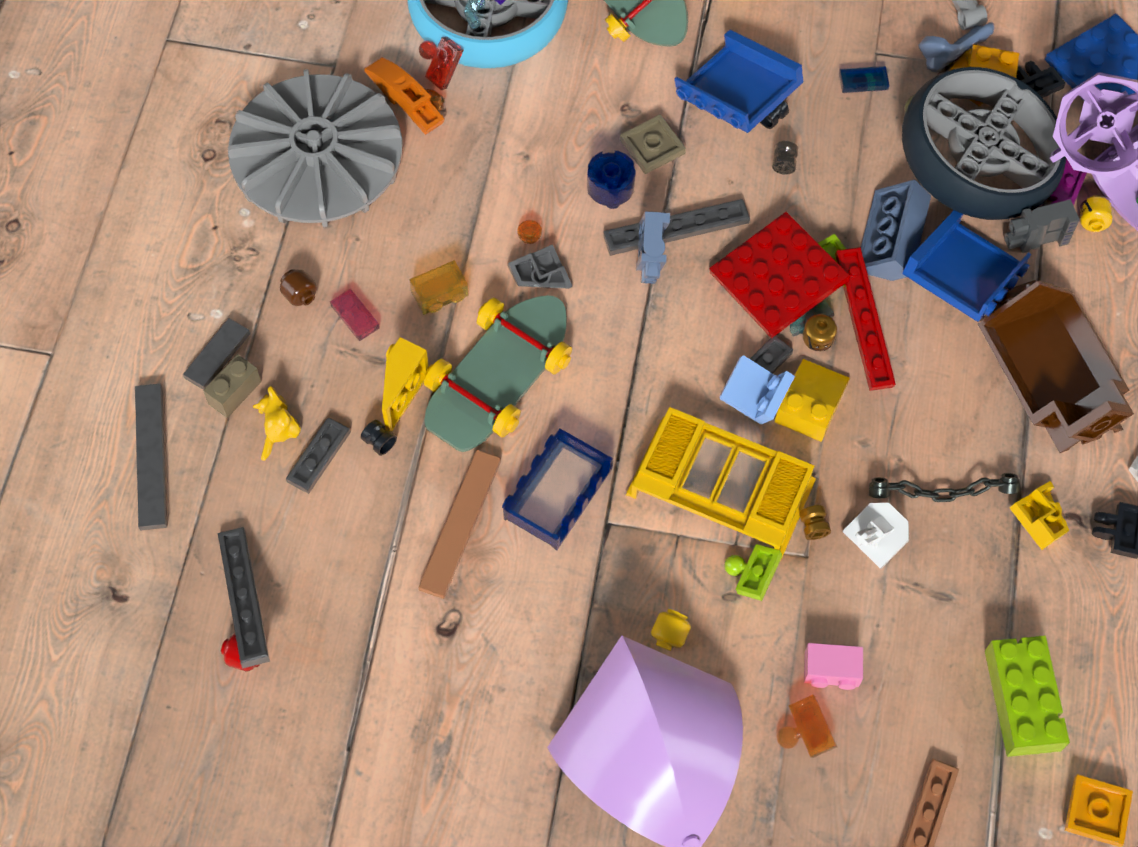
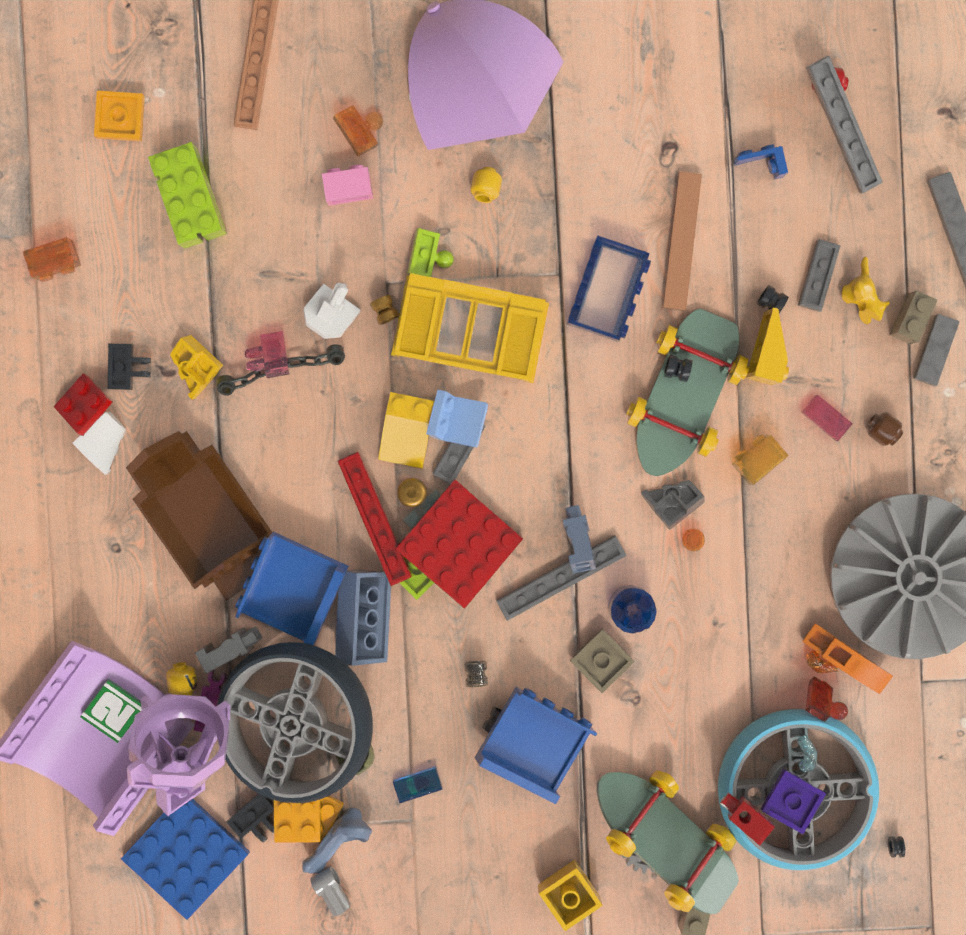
camera: 175 degrees right, 25 degrees up
(337, 592) = (776, 164): none -> blue bracket
(503, 387) = (678, 368): none -> black wheel
(949, 500) = (273, 353): none -> clear pink hinge

